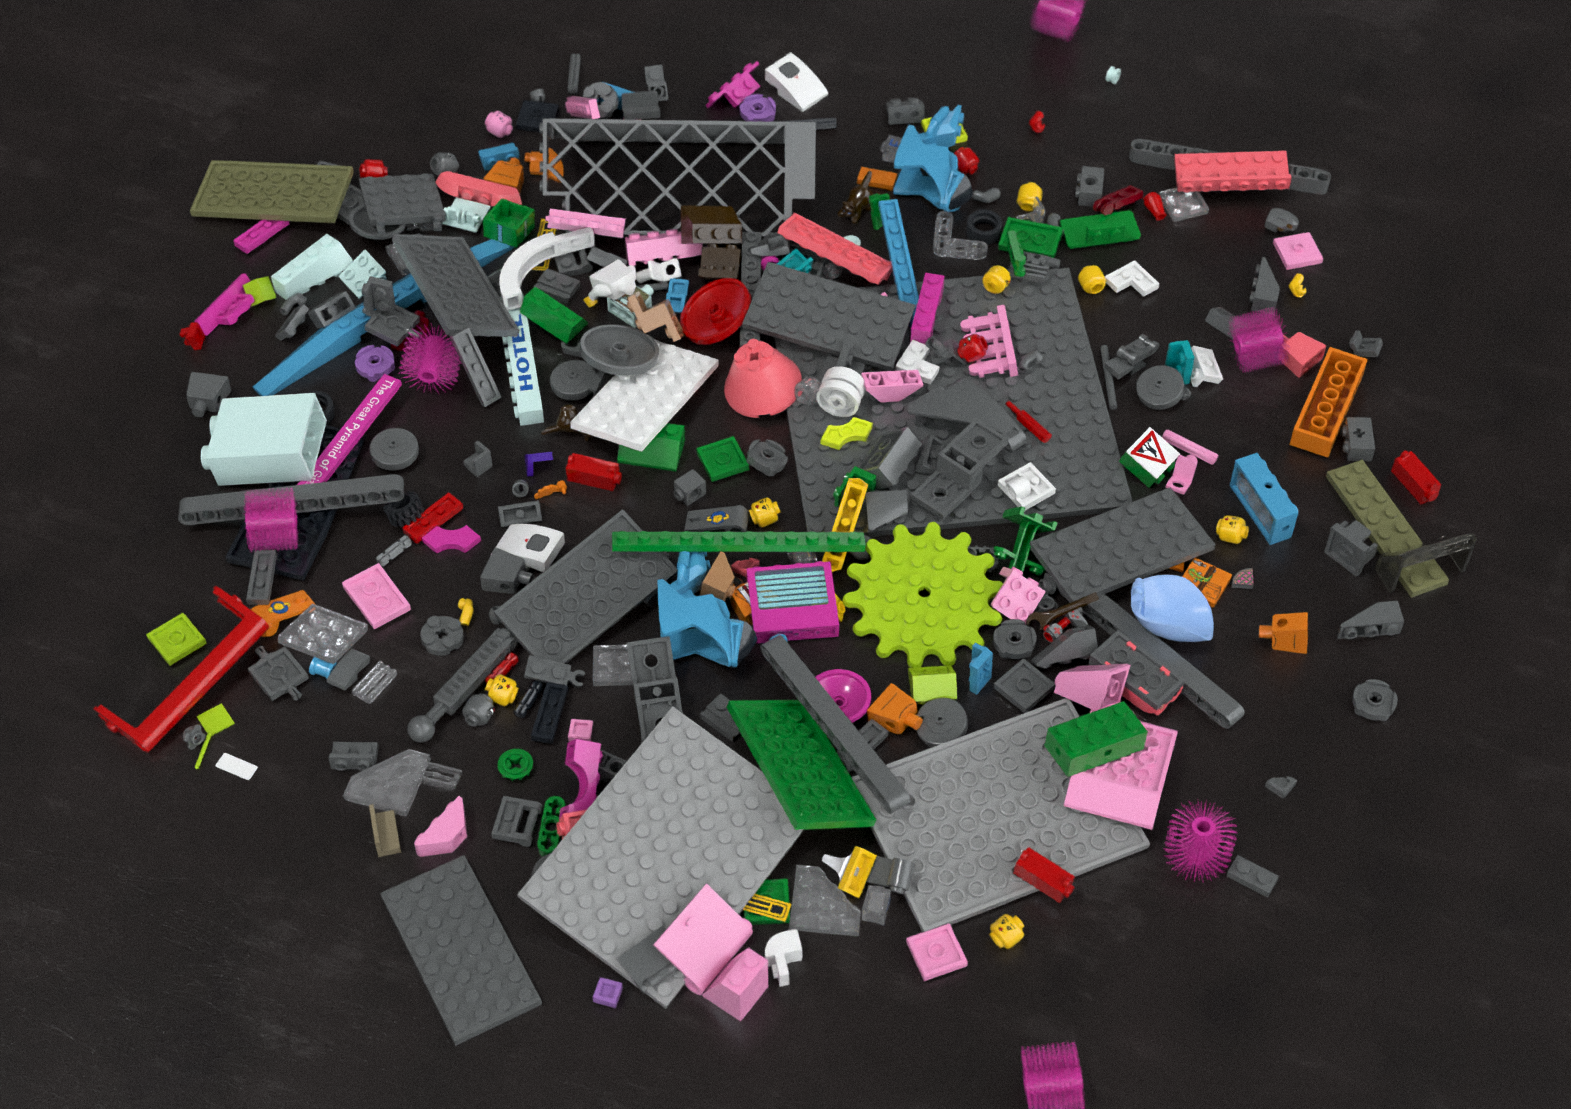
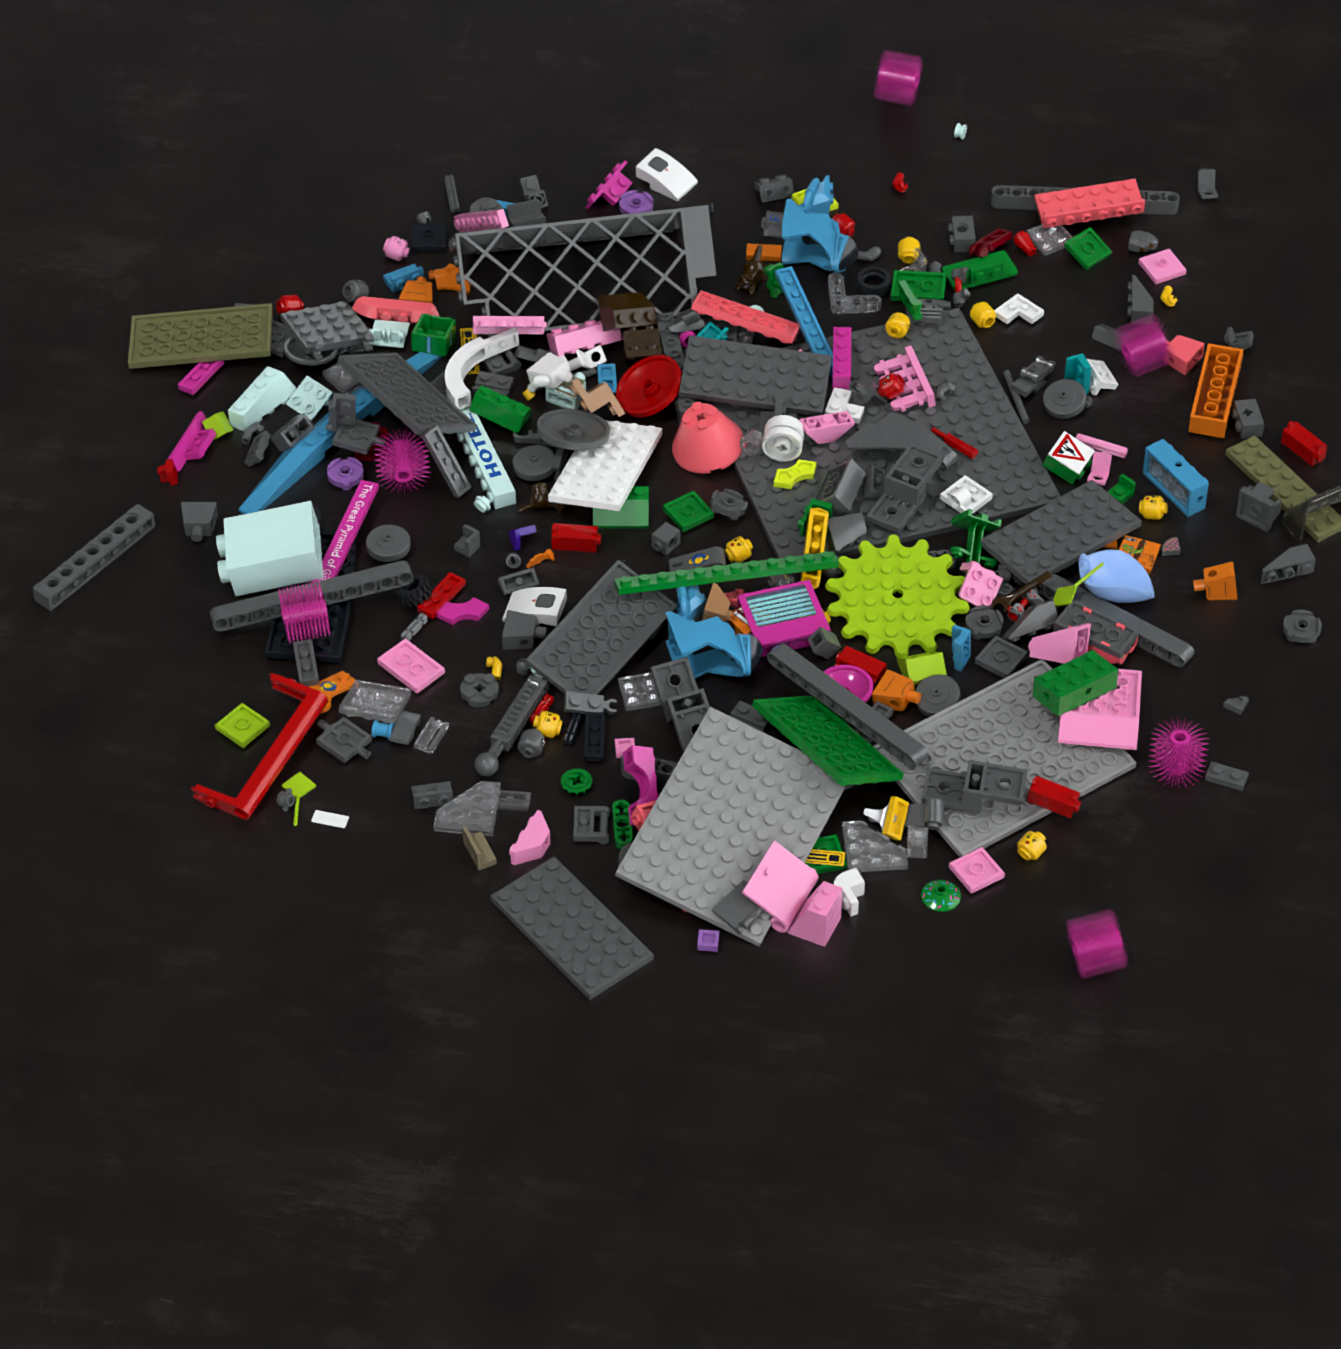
camera: 10 degrees left, 5 degrees down
(84, 420) = (93, 557): none -> dark grey brick
(506, 418) = (482, 504): none -> light aqua plate
(829, 639) = (824, 643): none -> dark grey brick
(874, 675) = (872, 666): none -> red brick
(889, 985) = (941, 895): none -> green dish
(954, 849) = (978, 783): none -> dark grey bracket
(1073, 254) = (960, 295): none -> dark grey piece
(1110, 622) = (1065, 595): none -> lime piece
(1202, 504) = (1123, 489): none -> green bracket
(1221, 220) = (1088, 248): none -> green tile
(1363, 165) = (1206, 183): none -> dark grey bracket

